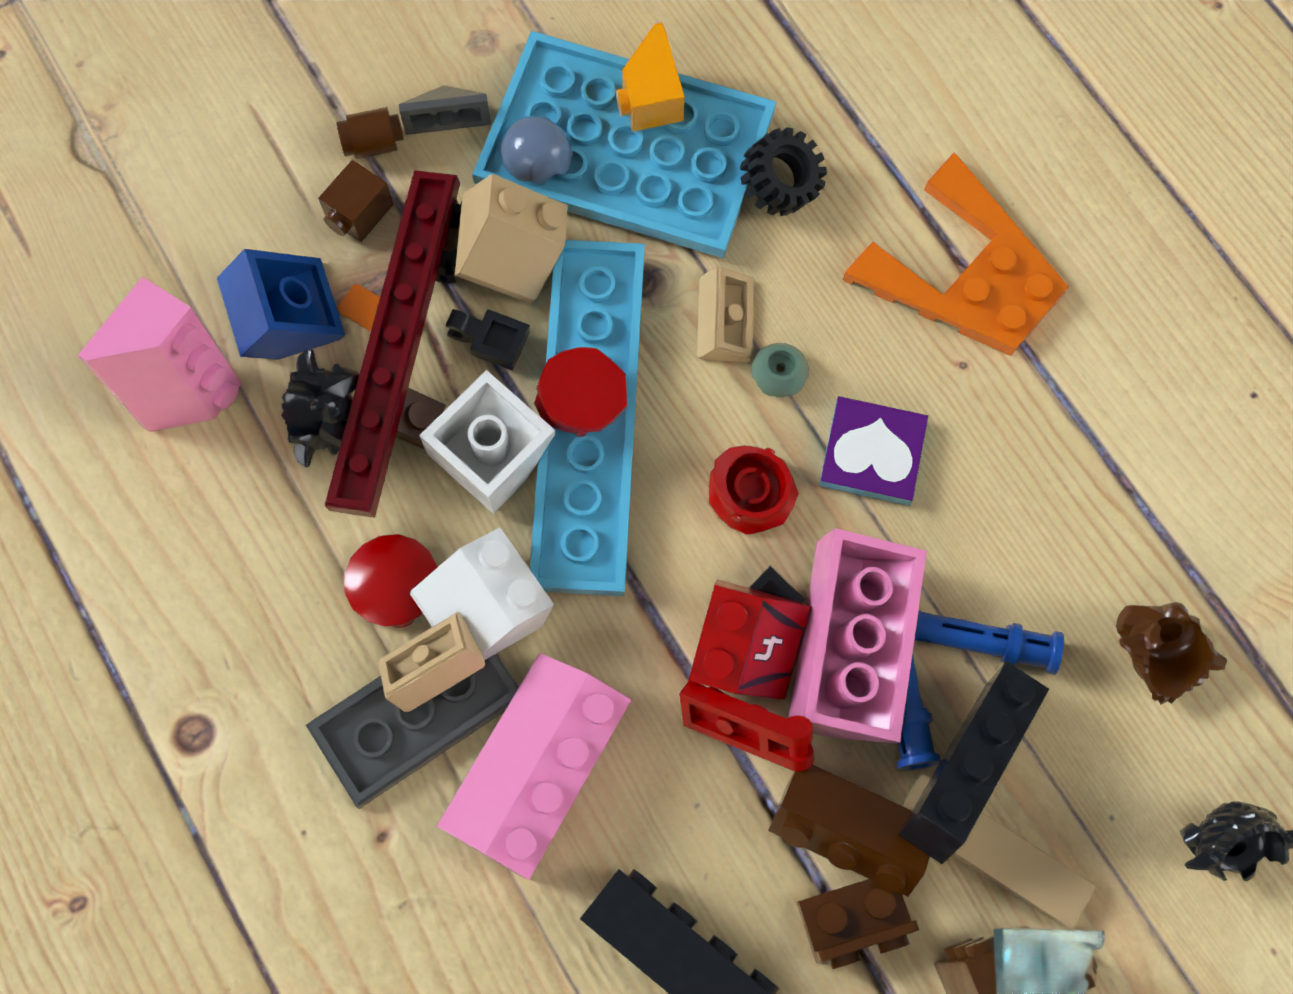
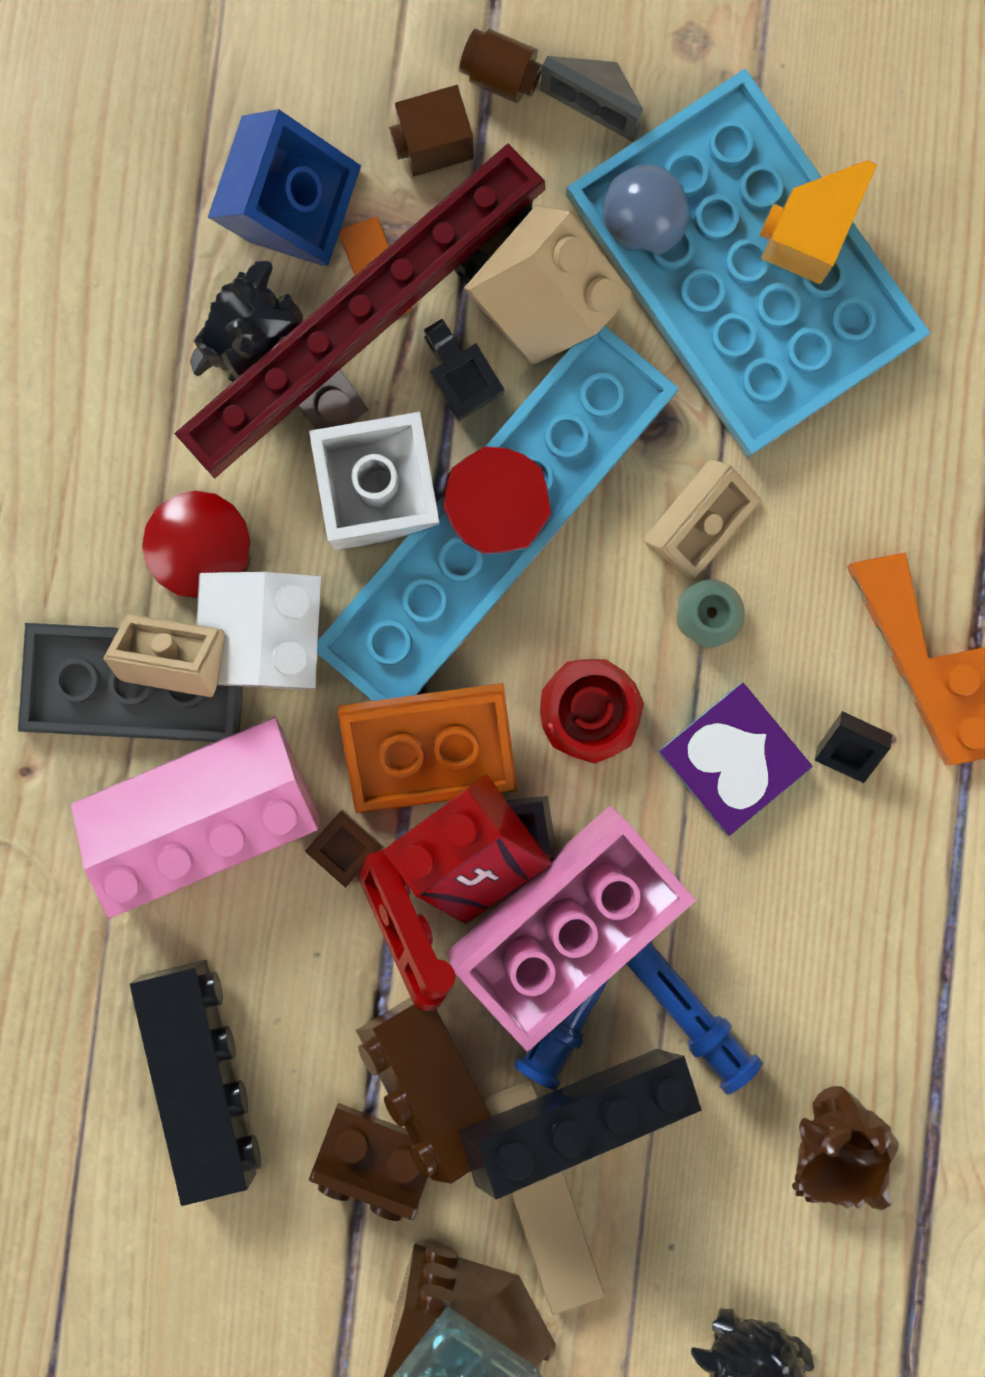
camera: 35 degrees right, 15 degrees up
(160, 361) = (109, 172): bright pink slope -> none
(657, 712) = (343, 848): none -> reddish brown tile
(660, 594) = (426, 746): none -> orange tile
(799, 159) = (902, 418): black tyre -> none
(943, 383) = (853, 747): none -> black plate

